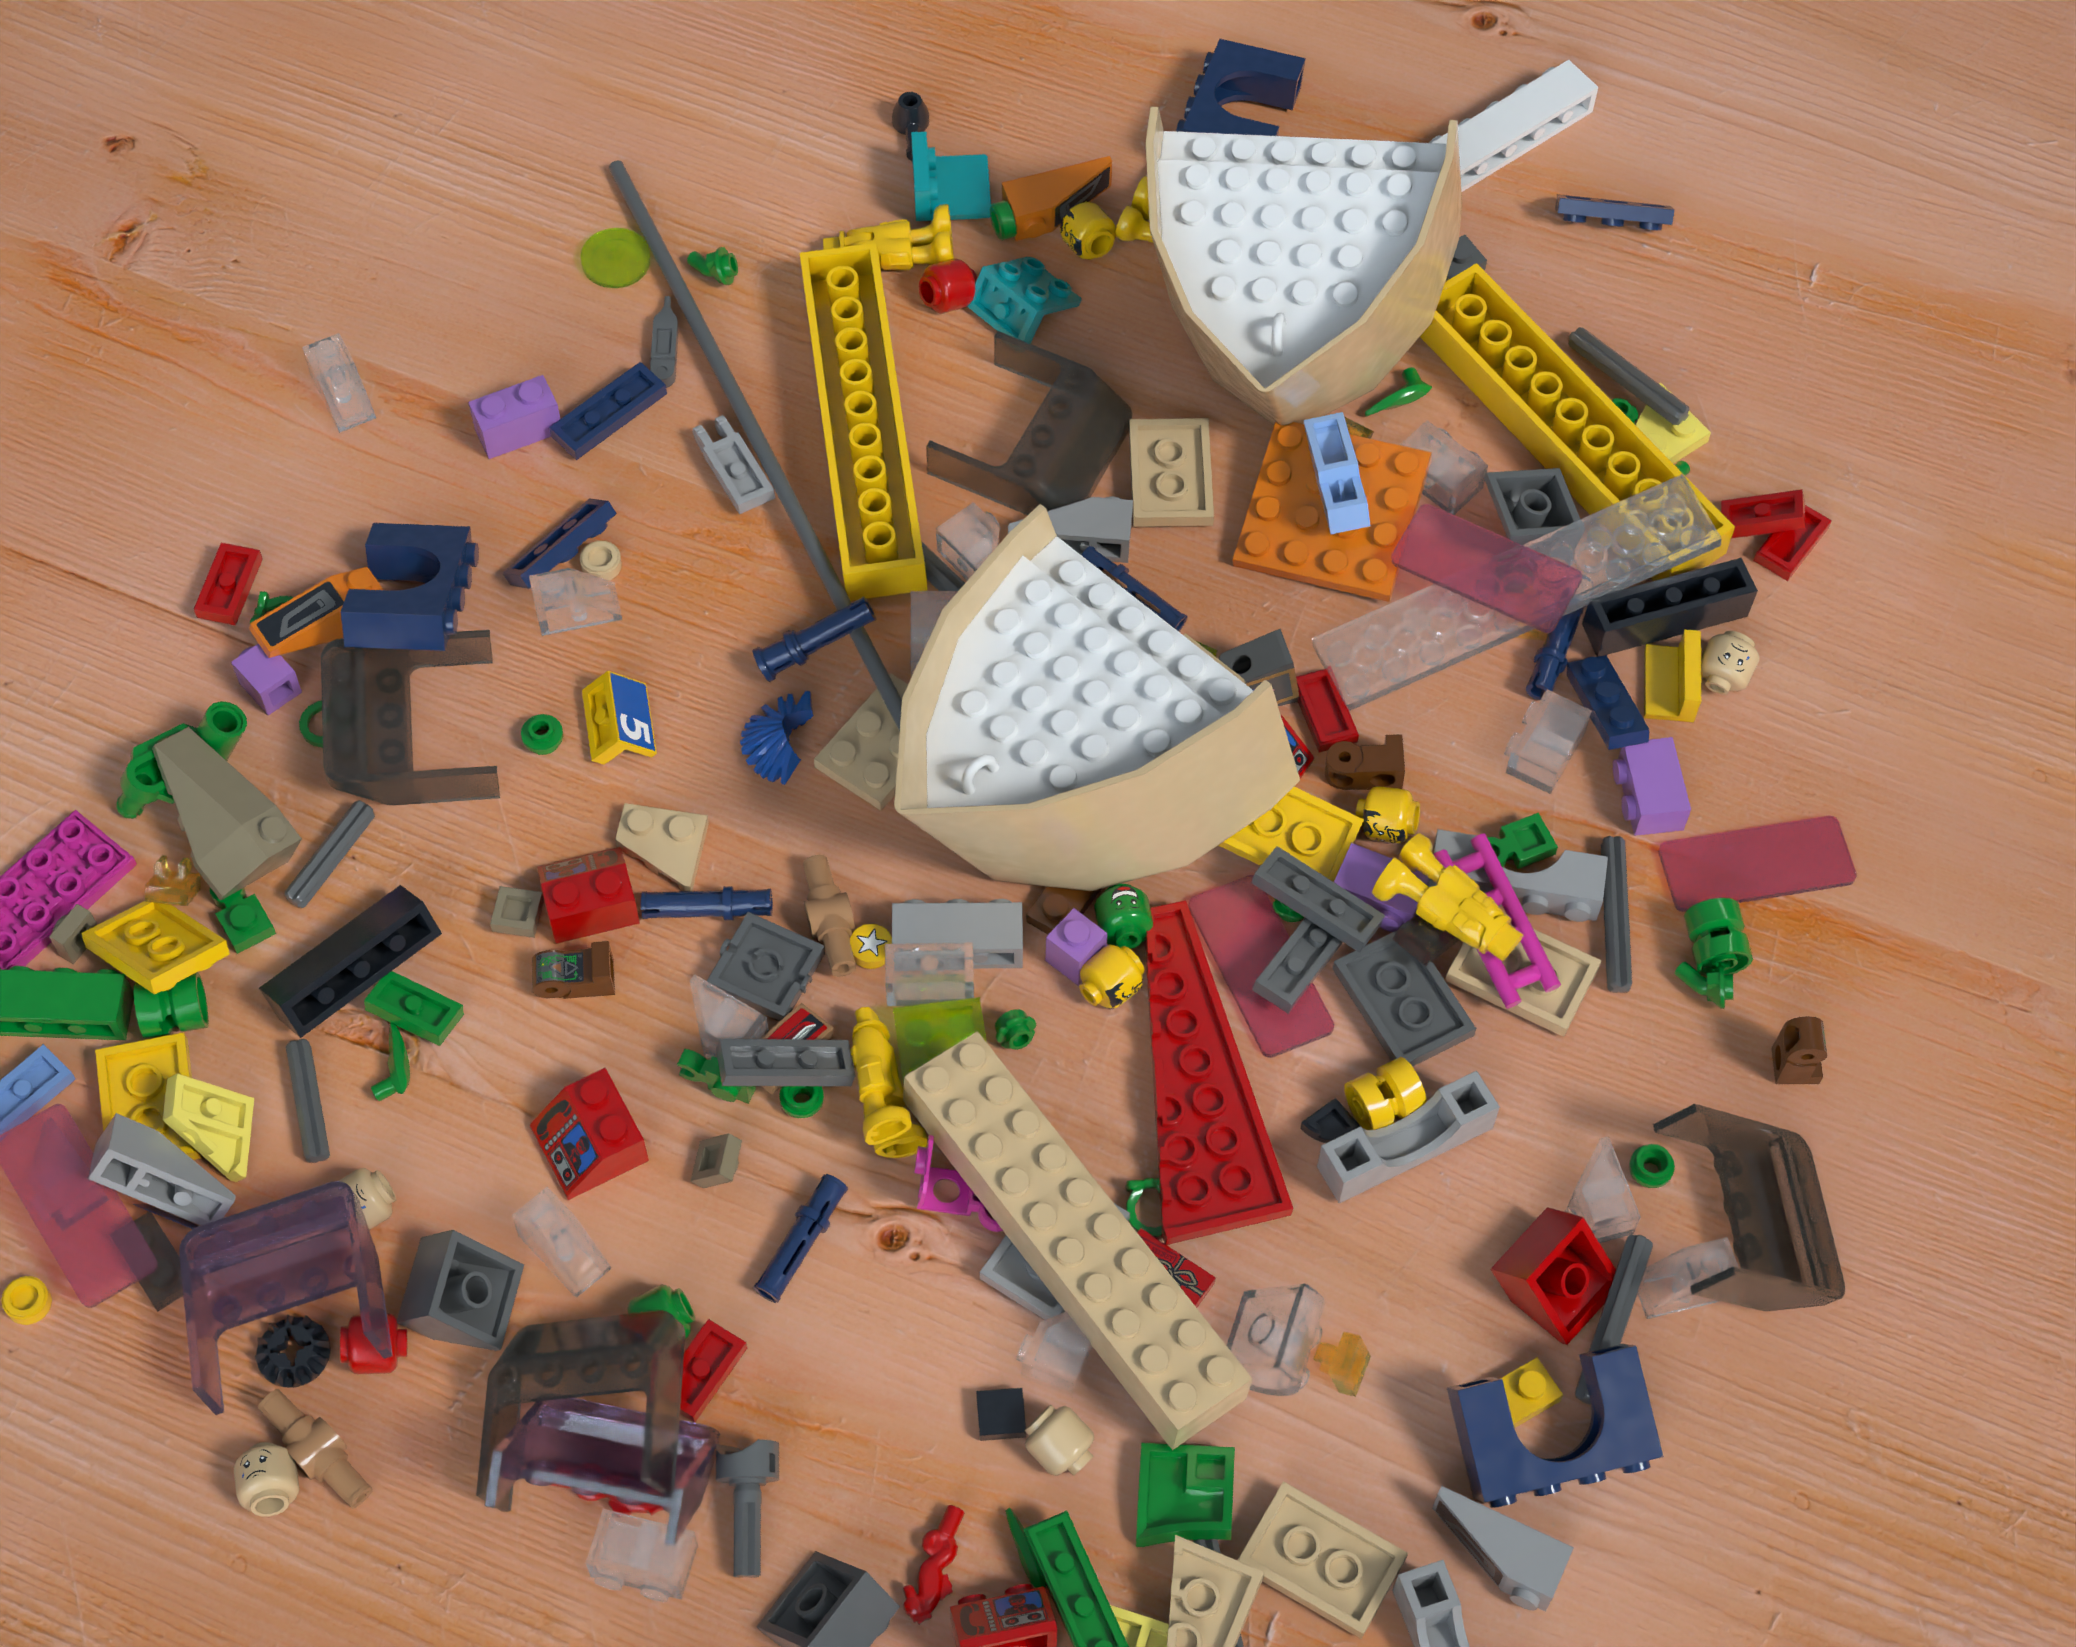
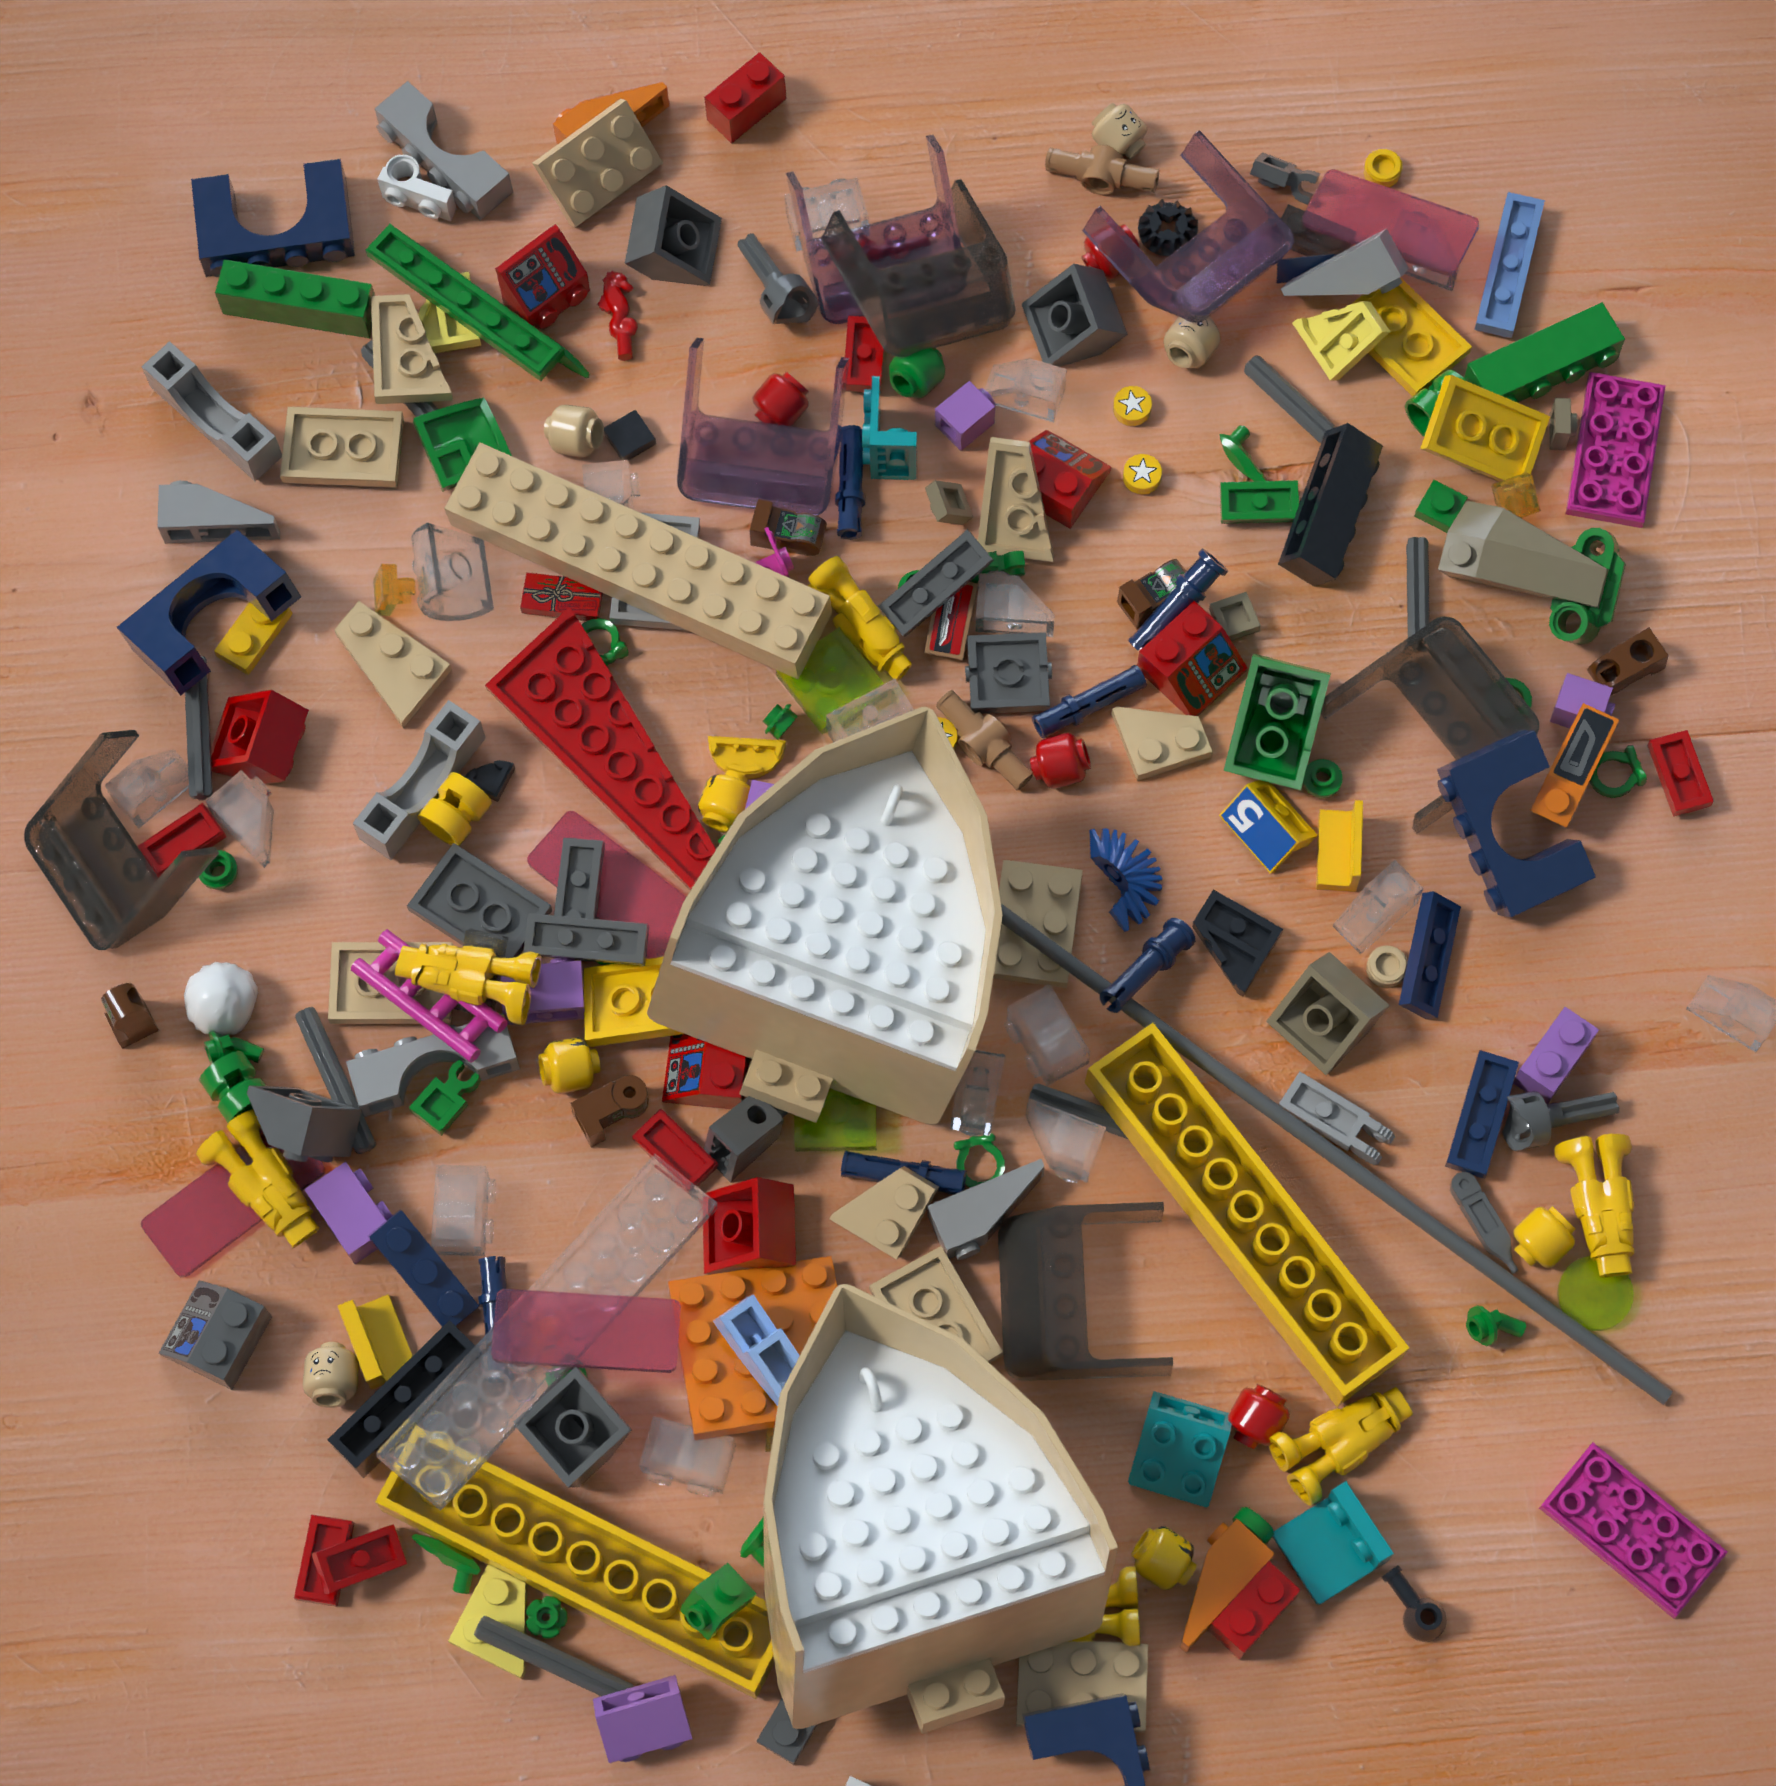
camera: 155 degrees right, 10 degrees up
(137, 1341) = (1277, 172): none -> dark grey plate
(193, 689) = (1629, 661): none -> reddish brown leg
(465, 1175) = (1132, 405): none -> yellow tile
(504, 1100) = (1142, 474): none -> yellow tile
(545, 783) = (1277, 721): none -> green piece
(546, 933) = (1189, 588): none -> dark blue pin
(563, 300) = (1605, 1206): none -> yellow piece
(565, 378) = (1533, 1118): none -> dark grey piece
(568, 665) = (1339, 849): none -> yellow panel
(627, 300) = (1544, 1237): none -> yellow head
(639, 1244) = (965, 415): none -> medium lavender brick
(660, 1107) = (1013, 503): none -> tan wing
(678, 539) = (1327, 1012): none -> dark tan slope
(710, 101) = (1633, 1530): none -> dark pink tile
(716, 637) = (1235, 938): none -> black wing
(751, 1234) = (889, 452): none -> teal bracket
(771, 858) = (1061, 761): none -> red head
(821, 1358) = (780, 400): none -> red head
(876, 1300) = (751, 460): none -> clear purple windscreen
(897, 1220) = (796, 531): none -> reddish brown leg
(1038, 155) = (1254, 1610): none -> red brick
(1066, 1021) = (746, 755): none -> yellow tile
(1162, 563) = (888, 1211): none -> tan wing
(1296, 599) = (750, 1227): none -> red slope
(1376, 1295) = (392, 660): none -> tan wing
(1475, 321) = (716, 1600): none -> green bracket
(1574, 303) = (642, 1719): none -> medium lavender brick
(1667, 867) = (305, 1122): none -> dark grey slope
(1681, 1215) = (190, 832): none -> red tile
(1699, 1032) = (220, 998): none -> white hair
(1727, 844) = (264, 1184): none -> yellow piece
(1822, 746) = (216, 1333): none -> dark grey slope

